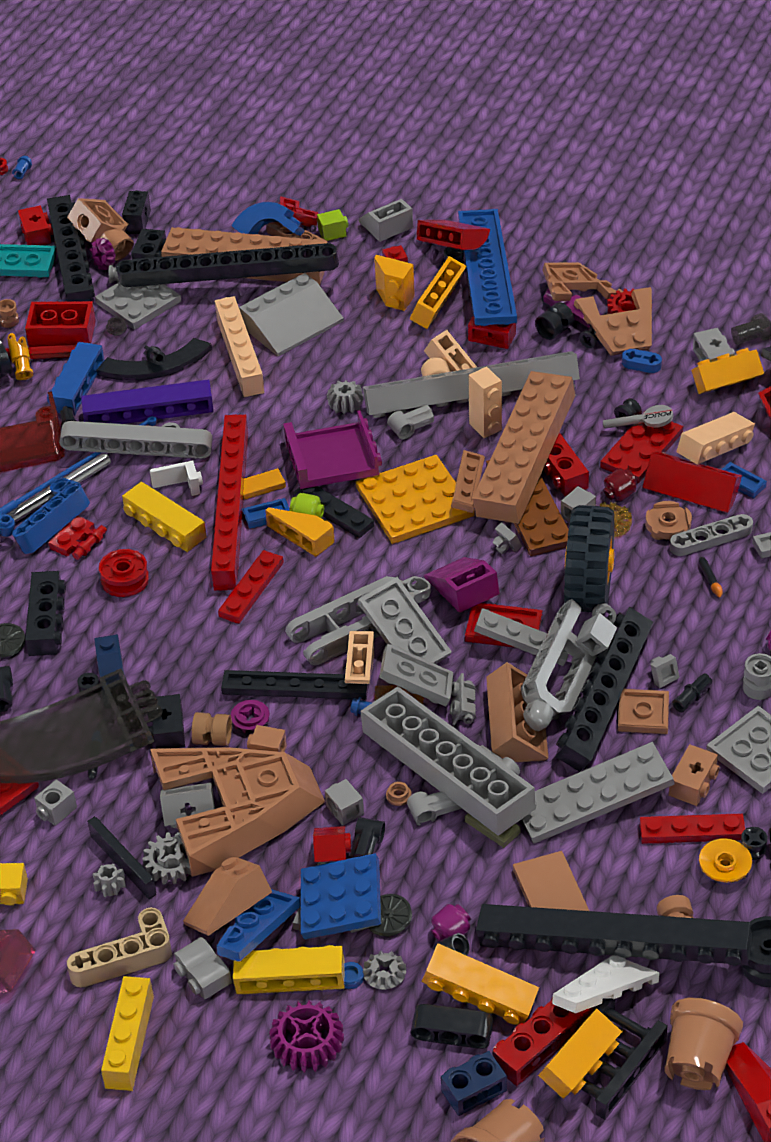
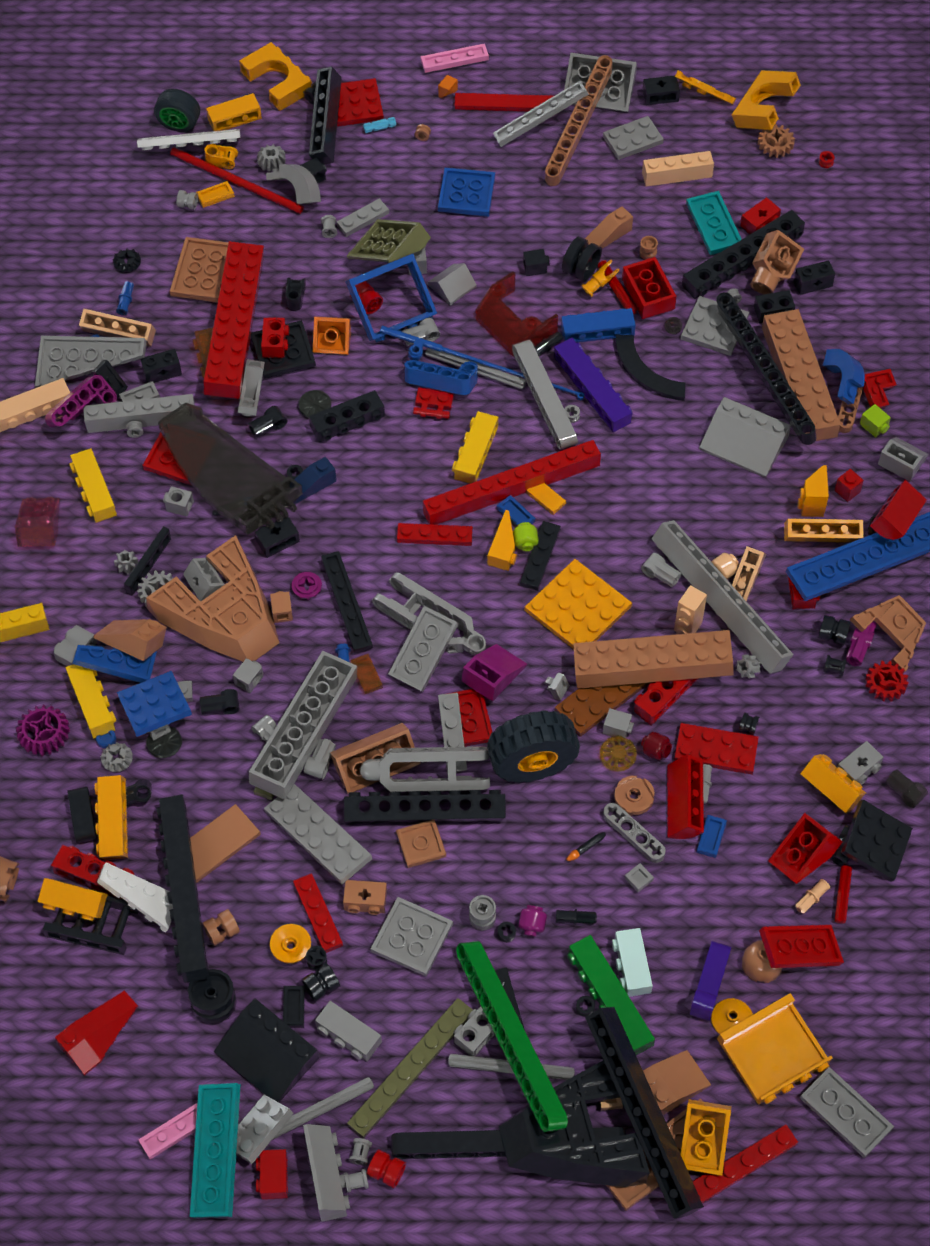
camera: 65 degrees right, 15 degrees up
(23, 165) = (829, 175): blue pin -> none
(91, 965) = (68, 594): tan beam -> none
(100, 246) = (747, 277): magenta gear -> none
(123, 573) = (405, 456): red wheel -> none
(154, 354) = (645, 364): black axle -> none
(177, 474) = (528, 446): white bracket -> none
(211, 729) = (279, 567): medium nougat wheel -> none
(239, 346) = (686, 417): light nougat brick -> none
(331, 844) = (198, 679): red brick -> none
(333, 453) = (594, 528): magenta panel -> none
(345, 397) = (665, 511): light grey gear -> none
(360, 657) = (376, 632): light nougat slope -> none
(395, 789) = (272, 703): nougat plate -> none
(416, 675) = (378, 674): light grey plate -> none
(450, 921) = (165, 782): magenta head -> none
(462, 694) = (369, 718): light grey hinge -> none
(467, 481) = (625, 630): nougat tile -> none
(477, 1088) = (37, 846): dark blue brick -> none
(596, 634) = (463, 780): light grey brick -> none
(602, 608) = (491, 784): light grey bush -> none
(621, 329) = (847, 687): nougat wing -> none
(641, 360) = (827, 713): blue beam -> none
(653, 417) = (743, 745): light grey piece -> none
(664, 670) = (463, 843): light grey tile -> none
(692, 693) = (452, 871): black axle -> none
(701, 1041) = (111, 972): nougat piece -> none
(715, 438) = (737, 798): light nougat brick -> none

